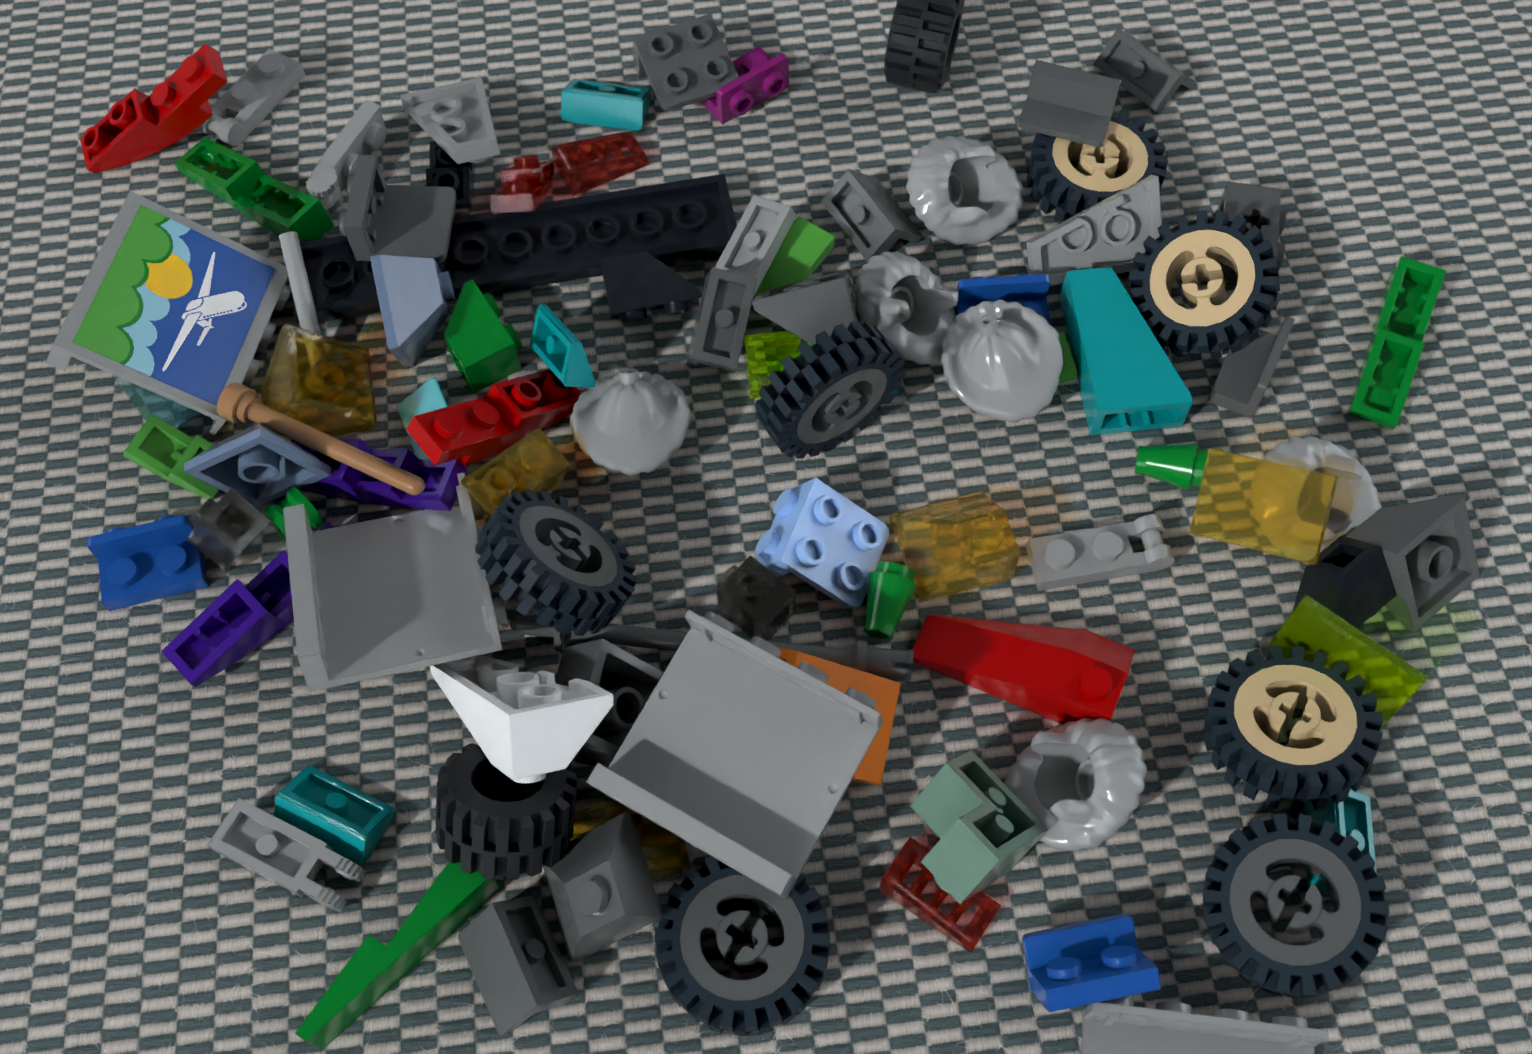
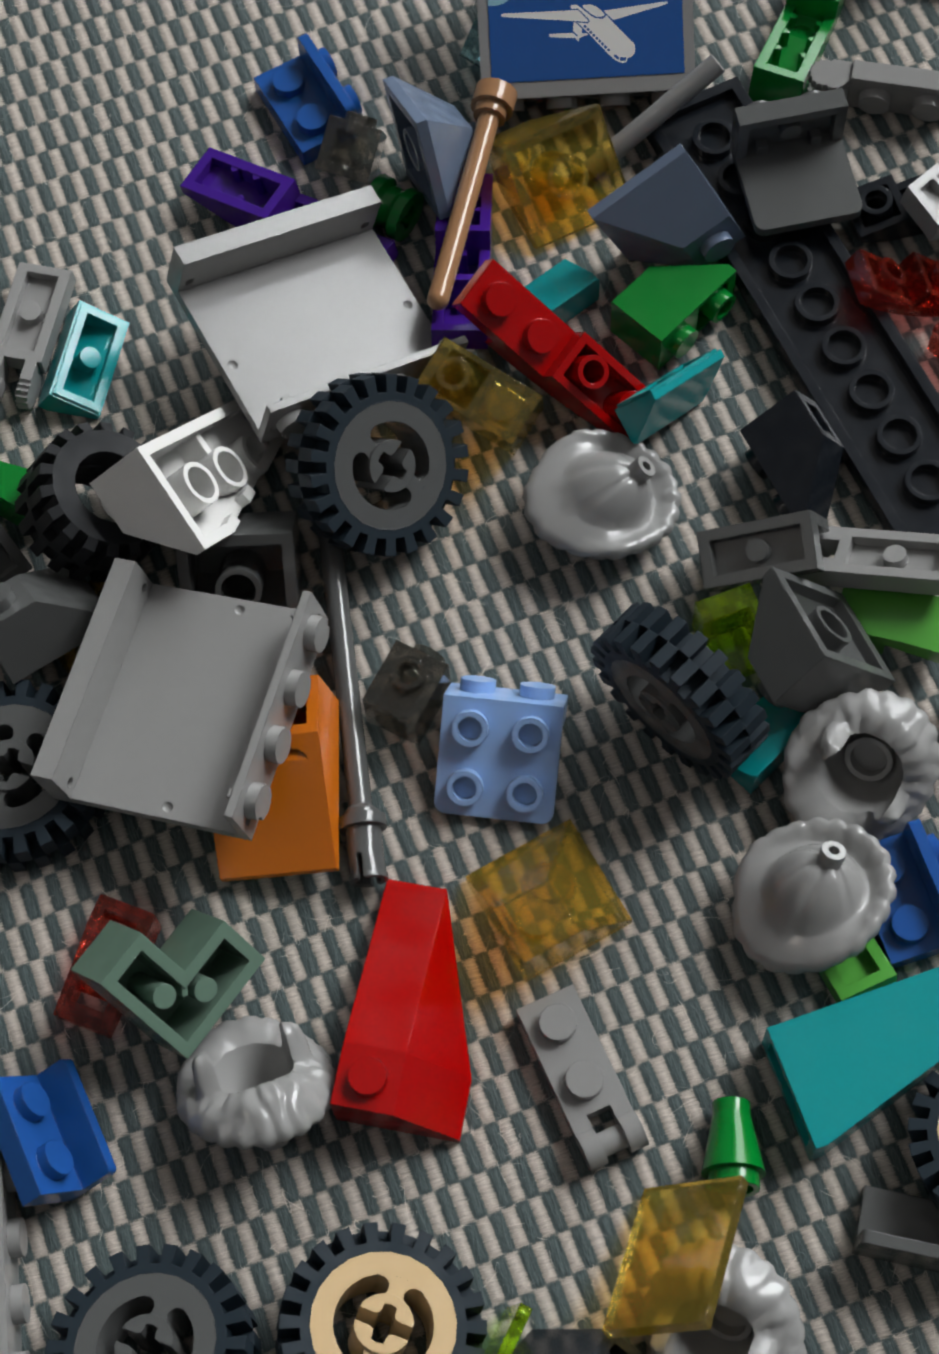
camera: 80 degrees right, 5 degrees up
(165, 450) = (442, 63): bright green slope -> none
(888, 596) = (450, 836): green cone -> none

